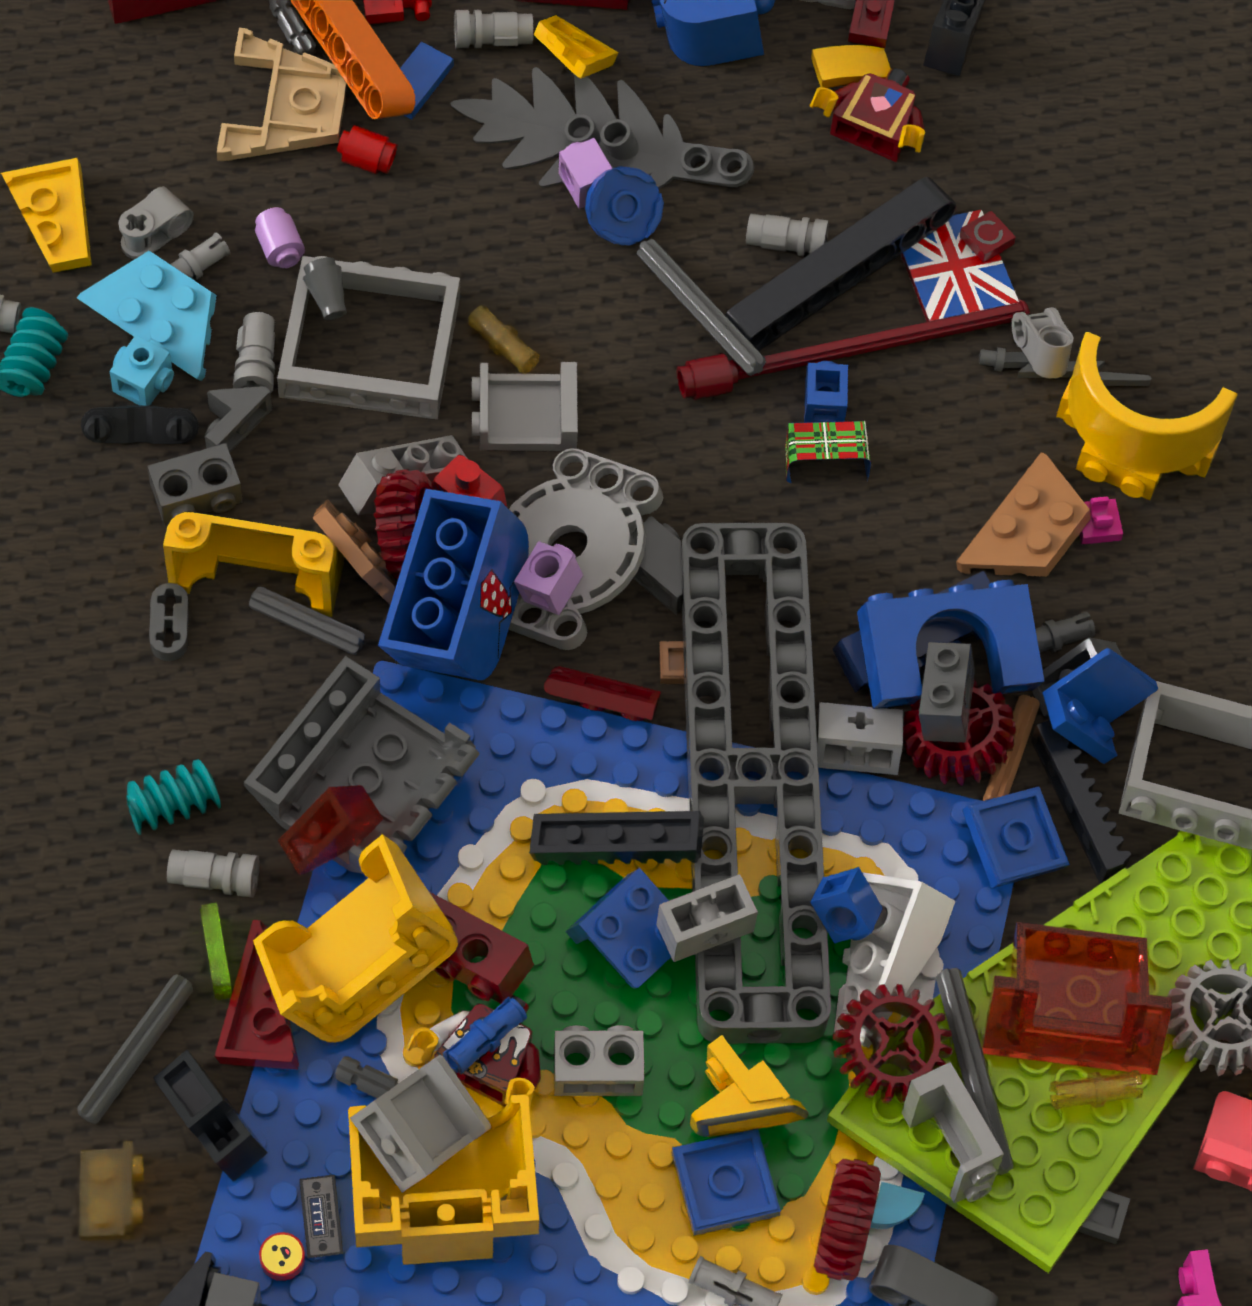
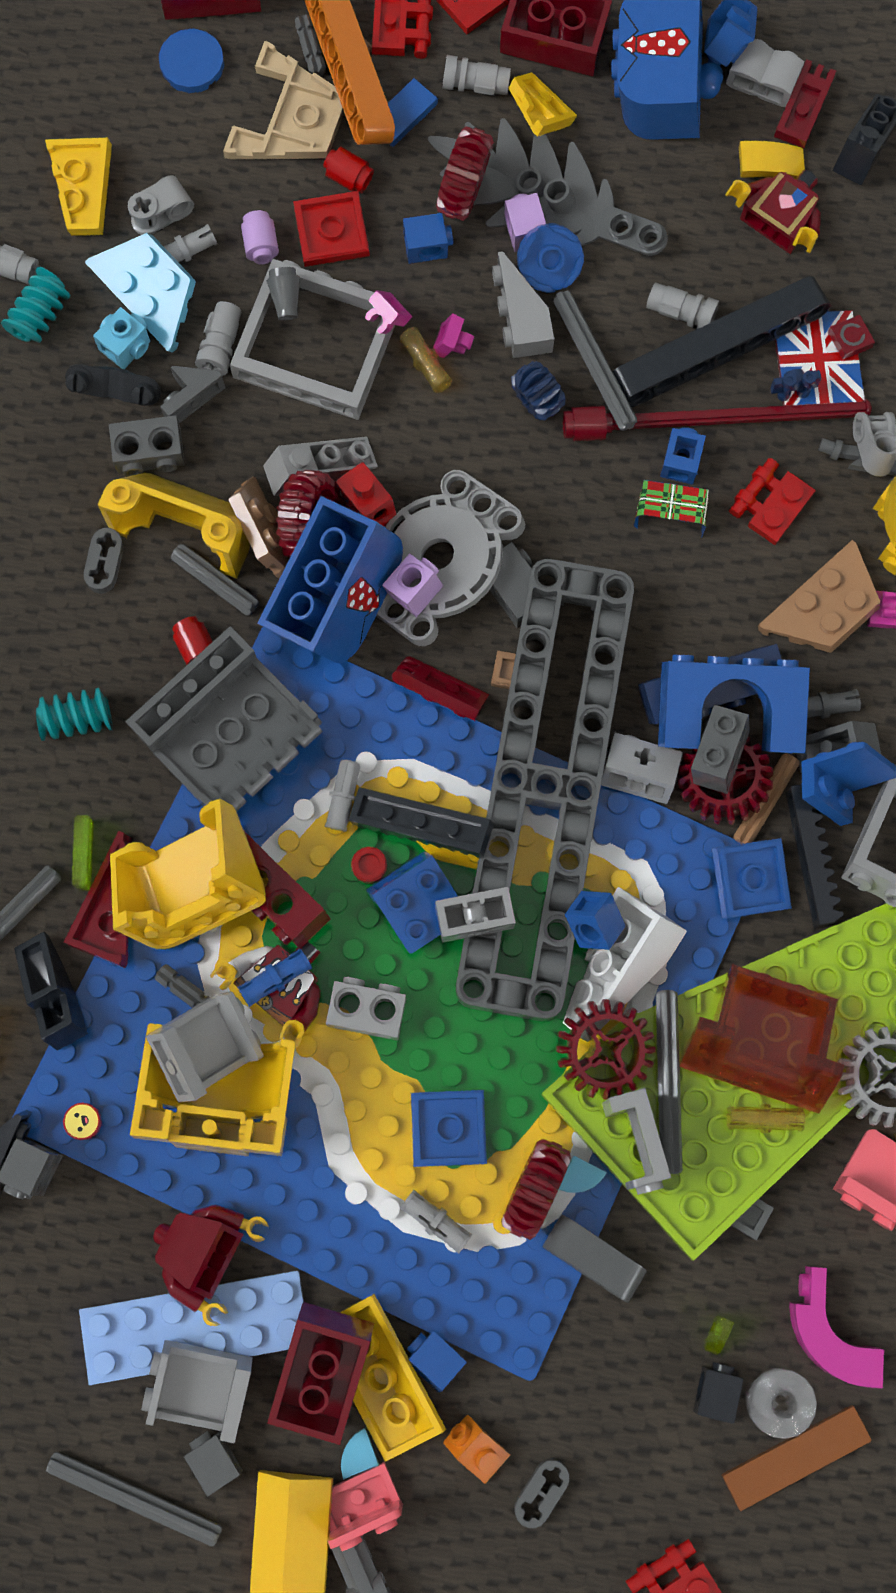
camera: 15 degrees right, 15 degrees up
(155, 62) = (191, 60): none -> blue tile
(214, 871) = (95, 784): light grey axle -> none
(293, 687) = (191, 638): none -> red brick
(321, 1216) = (121, 1091): sticker -> none
(330, 827) = (189, 771): clear red slope -> none
(361, 216) = (331, 228): none -> red plate
(454, 287) = (390, 310): none -> tile
(475, 208) = (426, 237): none -> blue brick
(507, 129) = (464, 173): none -> dark red gear
(515, 829) = (343, 795): none -> light grey axle
(526, 410) = (430, 426): light grey panel -> none
(528, 310) = (452, 338): none -> dark pink tile
(563, 902) = (369, 865): none -> red tile
(609, 271) = (526, 314): none -> light grey slope
(643, 349) = (538, 390): none -> dark blue gear
(745, 1098) = (480, 1071): yellow piece -> none
(935, 291) = (793, 381): none -> dark blue piece
(951, 432) = (781, 506): none -> red plate

